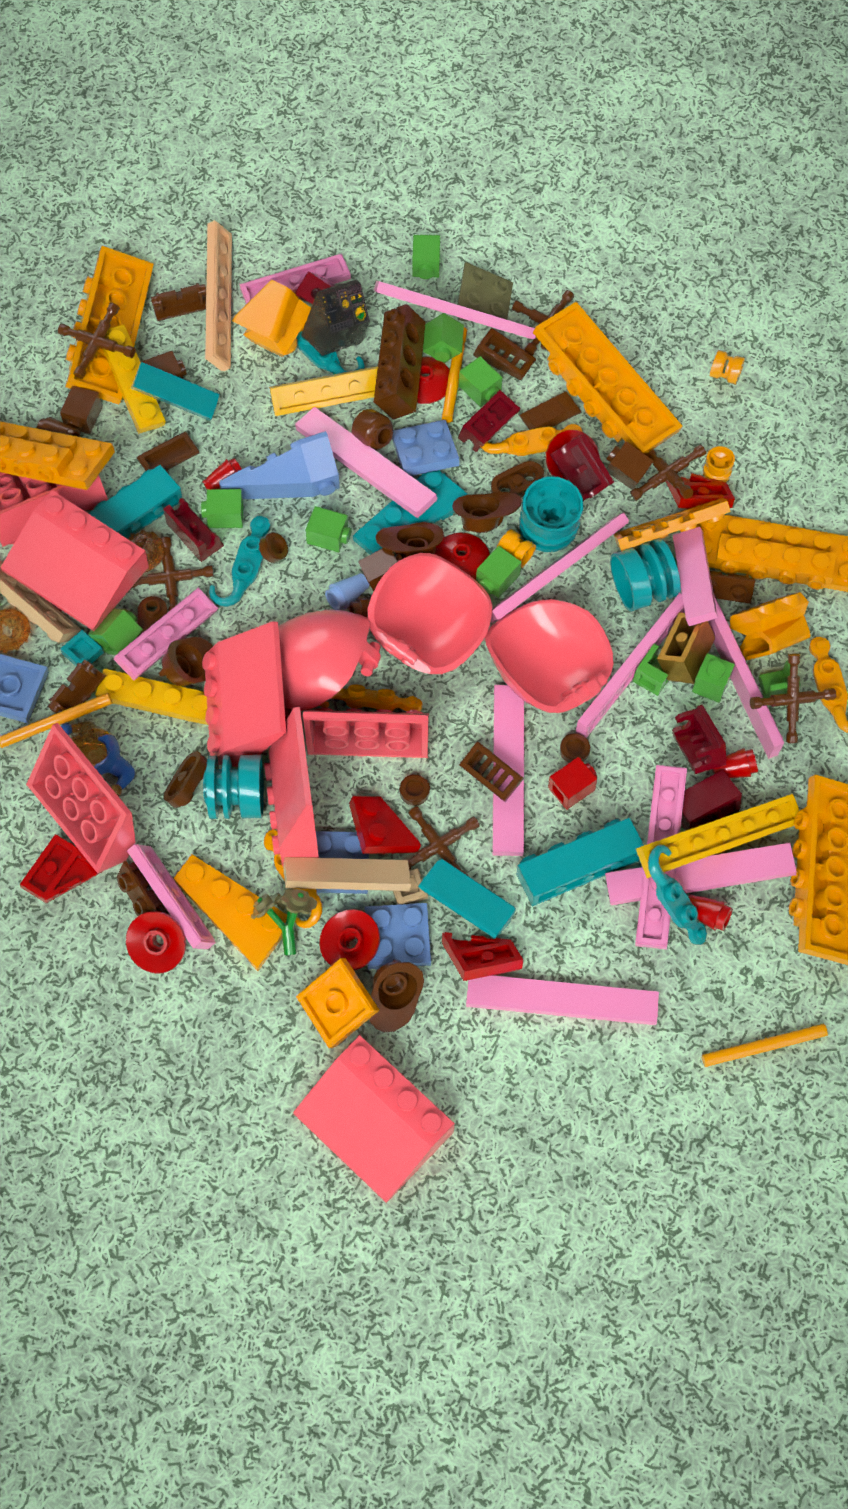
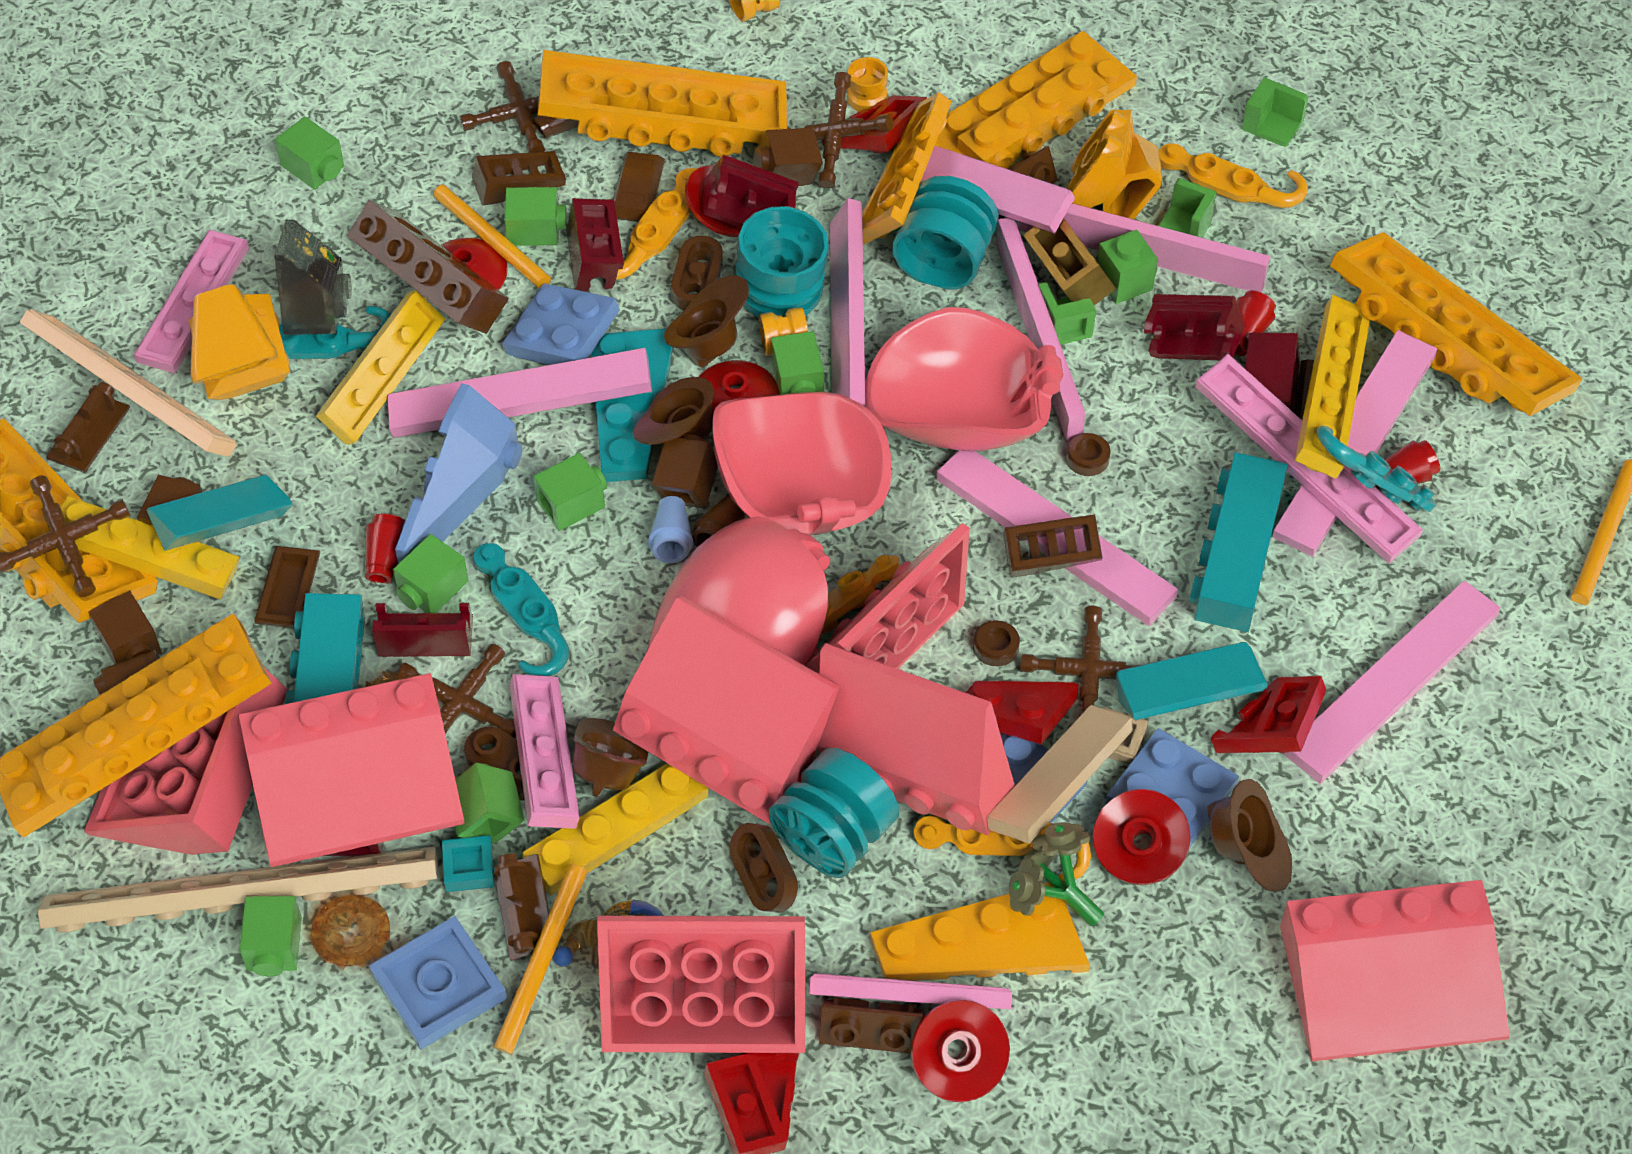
camera: 50 degrees left, 10 degrees down
(273, 547) = (536, 562): reddish brown tile -> none
(310, 285) = (250, 266): dark red hinge -> none
(337, 1003) = (1215, 905): light orange tile -> none
(372, 429) = (485, 353): reddish brown head -> none
(443, 338) = (439, 208): bright green brick -> none
(453, 309) = (422, 166): bright pink tile -> none
(484, 292) = (418, 140): olive hinge -> none
(573, 782) = (1135, 481): red brick -> none
(793, 698) = (1224, 206): reddish brown piece -> none

